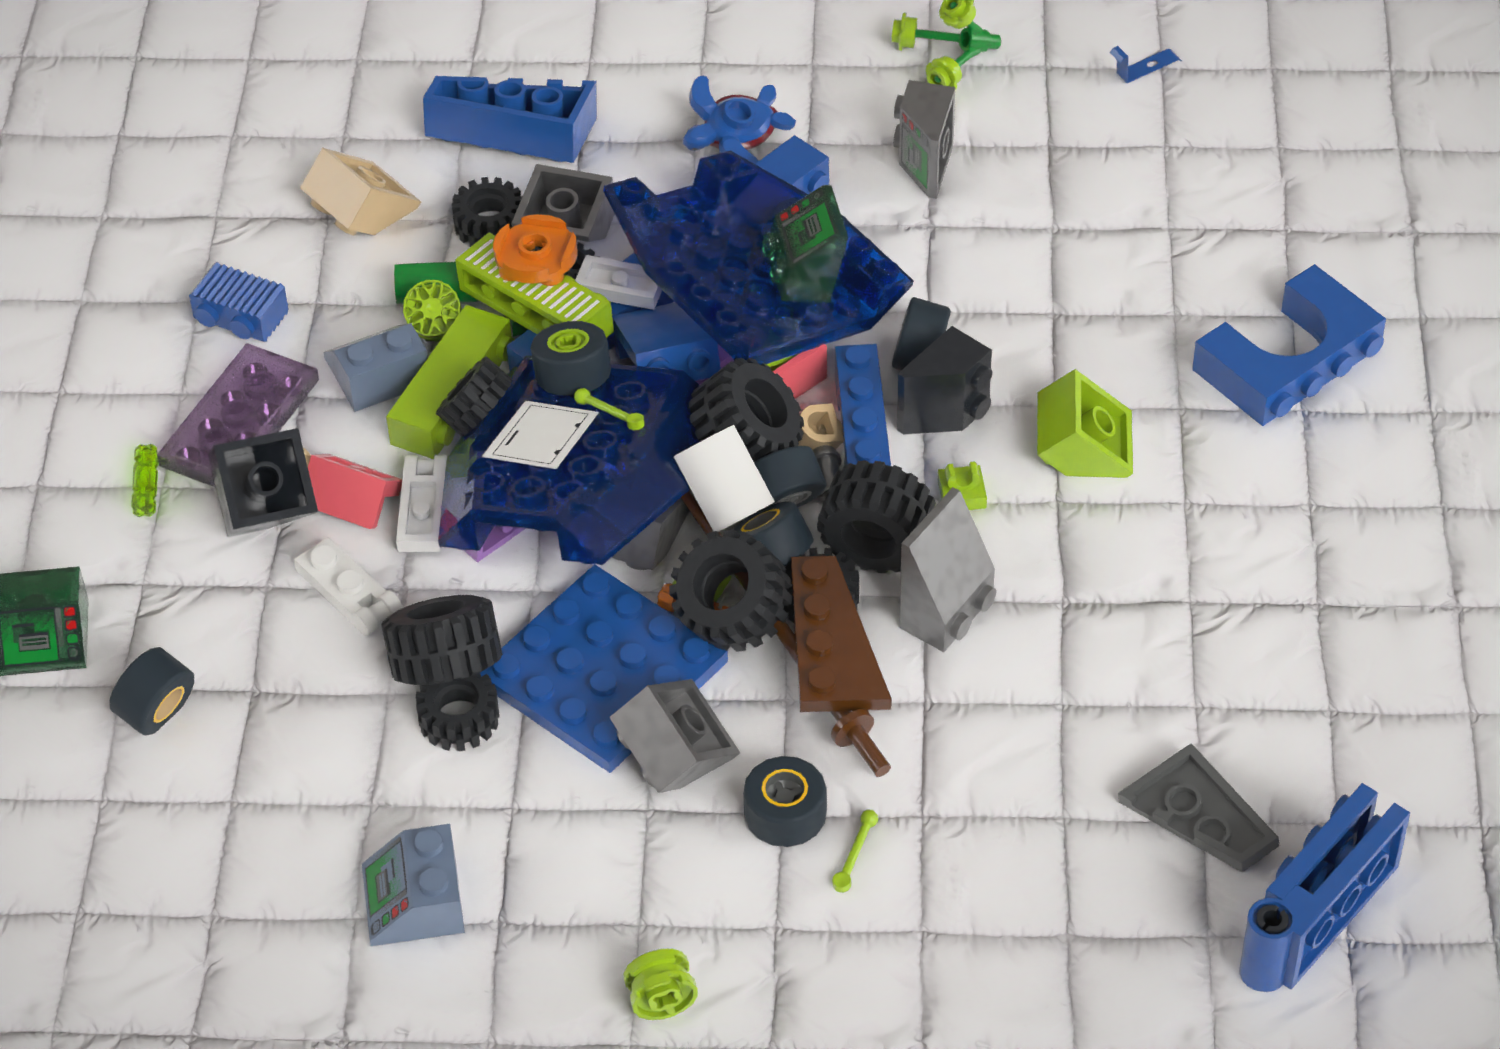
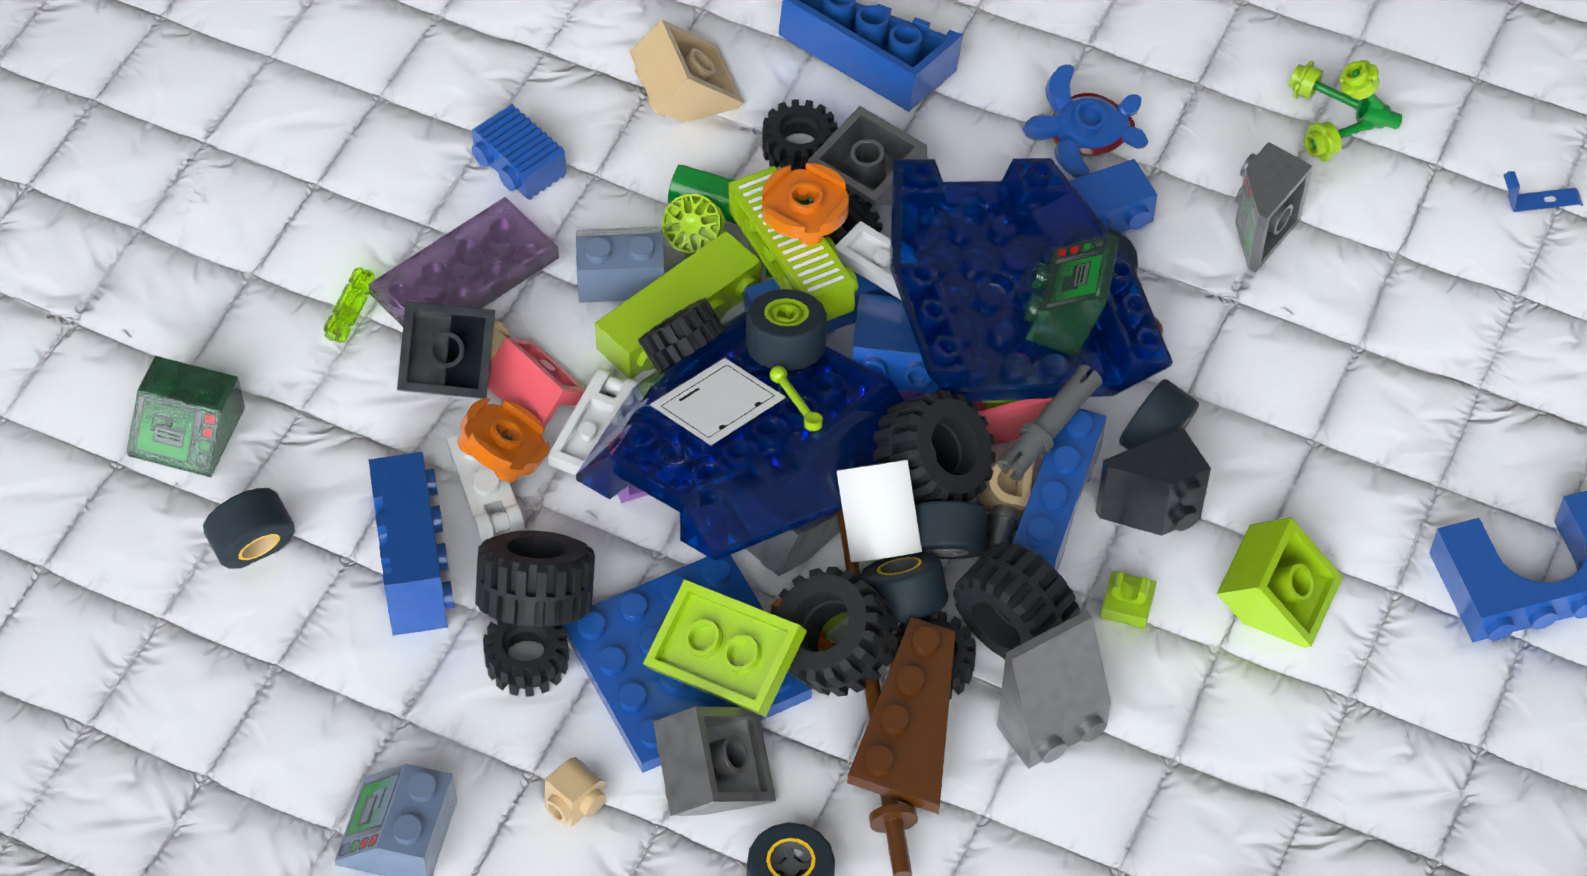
camera: 20 degrees right, 5 degrees up
(307, 655) = (408, 544): none -> blue wedge
(350, 539) = (483, 438): none -> orange plate
(560, 806) = (573, 792): none -> tan plate
(643, 635) = (725, 647): none -> lime plate
(830, 375) = (1038, 435): none -> dark grey pin

